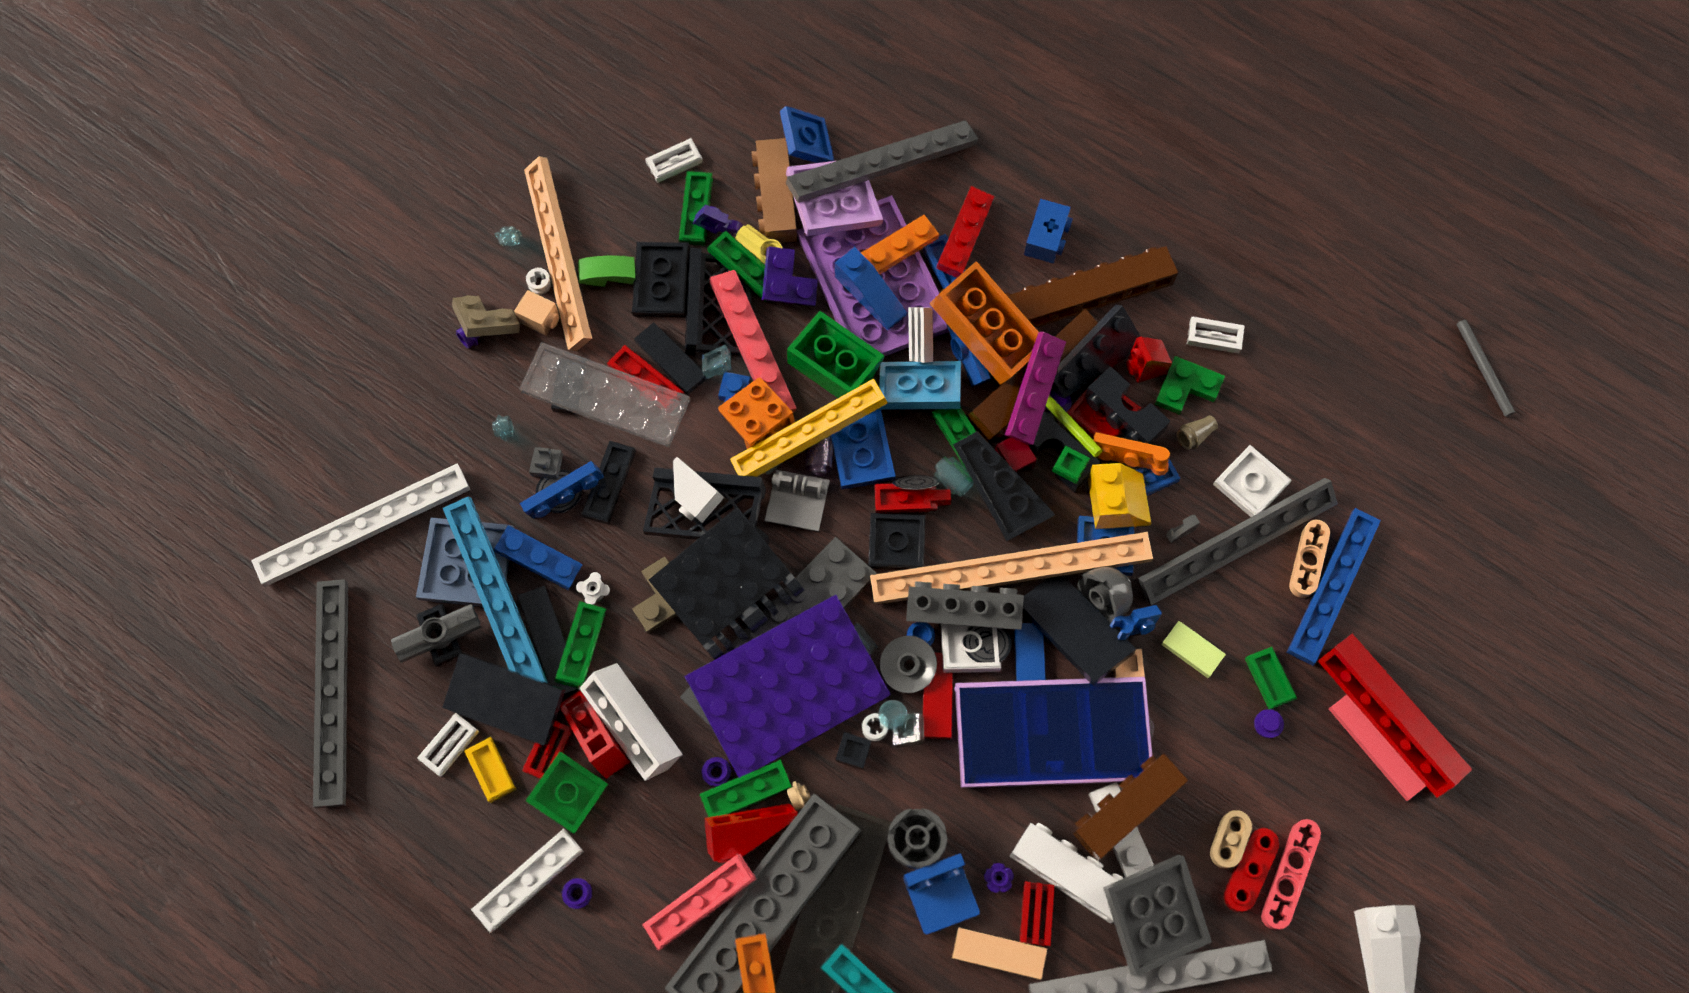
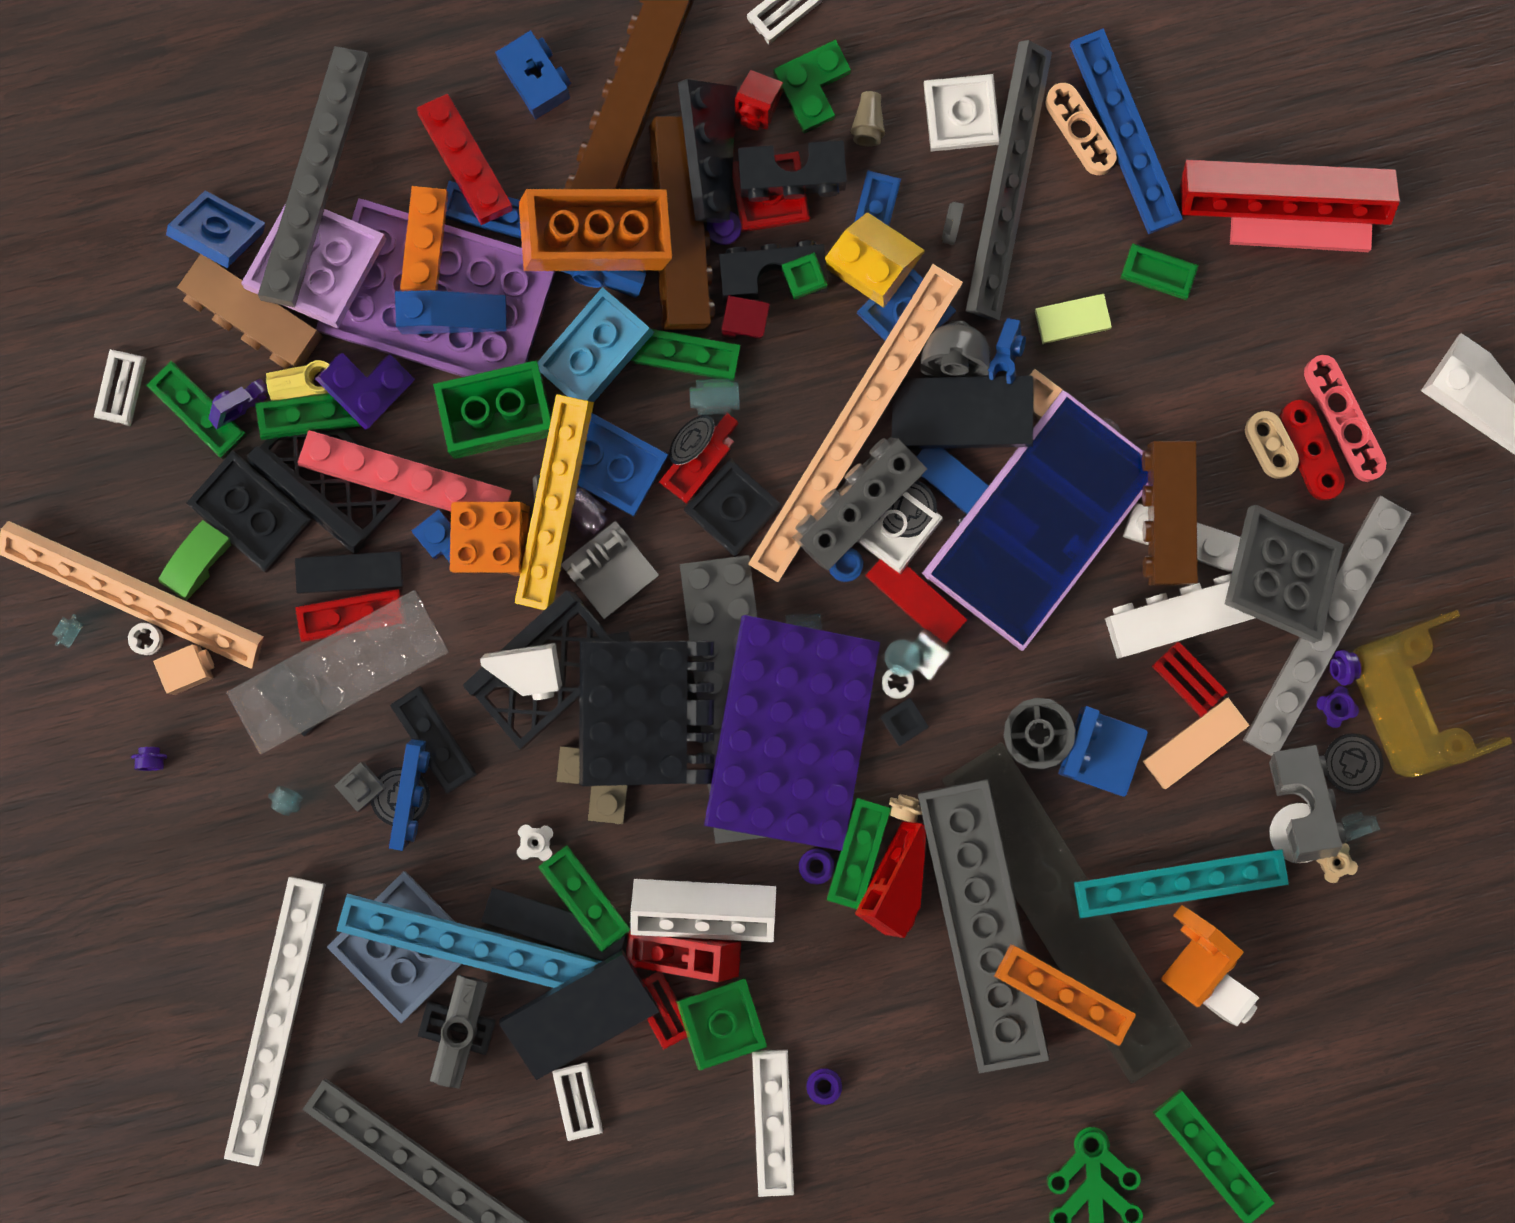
camera: 50 degrees left, 15 degrees up
(479, 322) = (150, 735): dark tan plate -> none
(490, 770) = (636, 1079): yellow tile -> none
(537, 557) = (459, 872): blue plate -> none
(699, 901) = (928, 979): coral tile -> none
(716, 362) = (395, 531): clear light blue plate -> none
(898, 653) = (870, 618): dark grey dish -> none
(920, 334) = (543, 304): white tile -> none
(995, 885) = (1121, 686): dark purple plate -> none
(1002, 489) = (774, 363): black wing -> none
(1035, 388) = (701, 243): magenta plate -> none
(1073, 427) = (762, 238): lime bar -> none
(1133, 453) = (839, 205): orange plate -> none
(1269, 723) = (1199, 313): dark purple plate -> none

